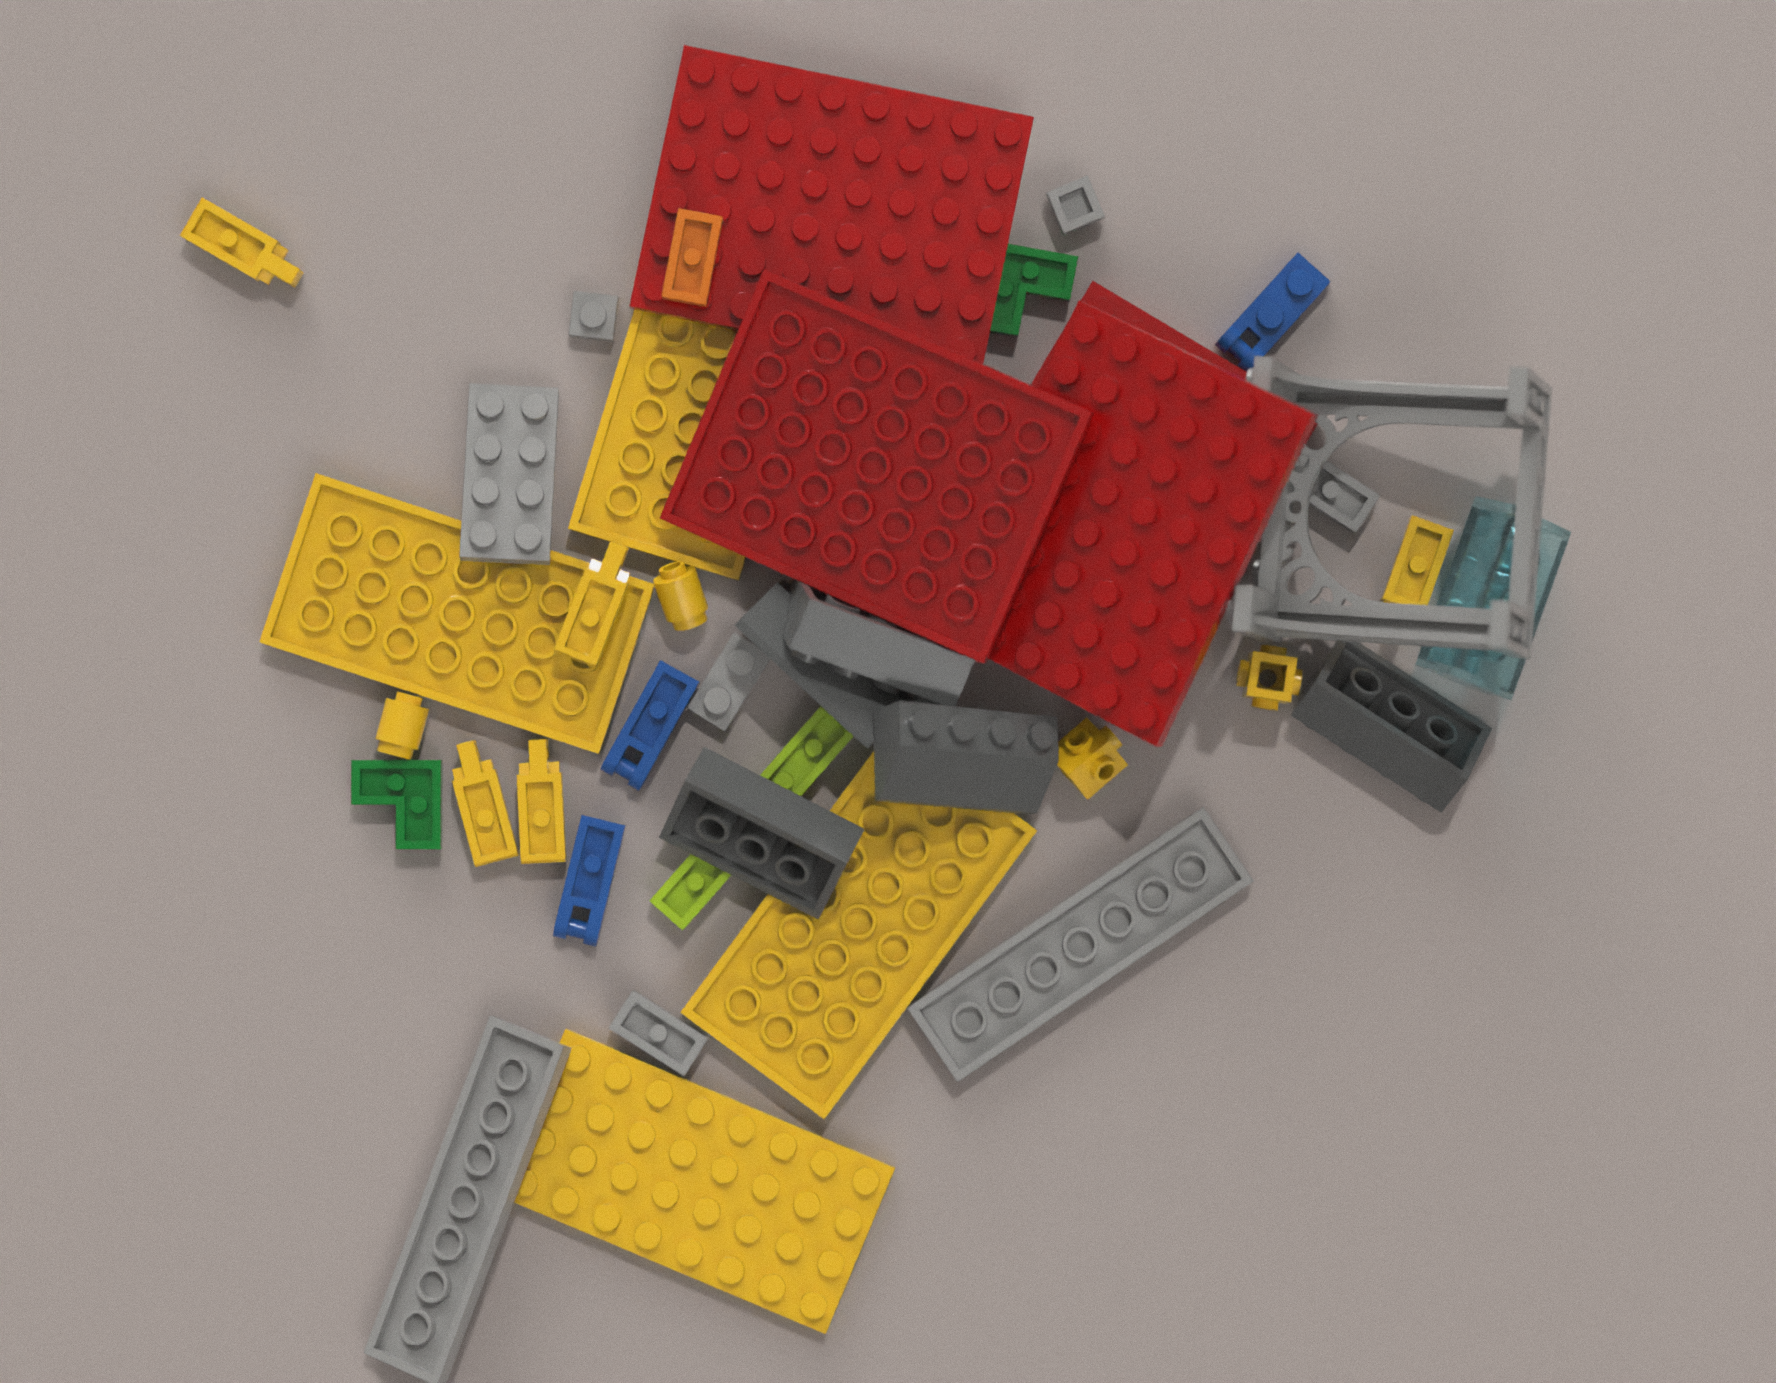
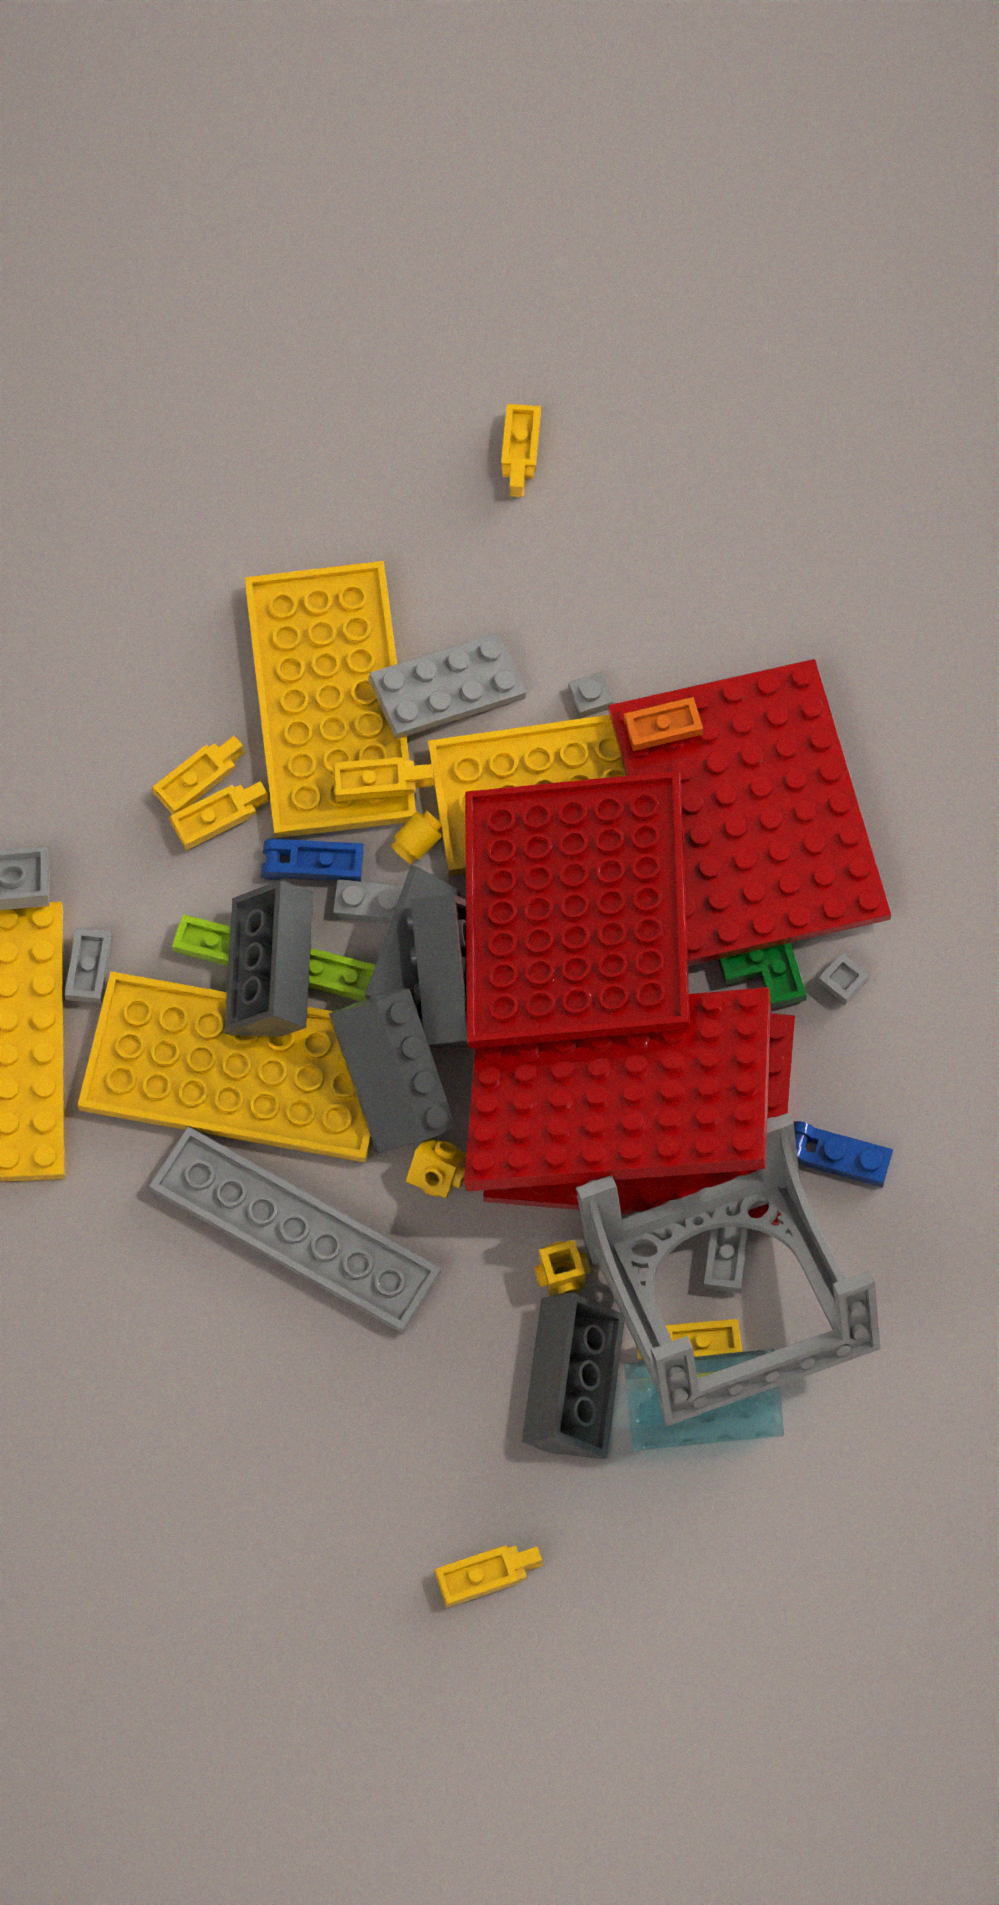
camera: 70 degrees right, 20 degrees down
(401, 725) = (230, 696): yellow brick -> none
(415, 791) = (187, 725): green plate -> none
(589, 878) = (178, 869): blue plate -> none
(1561, 917) = (485, 1573): none -> yellow hinge

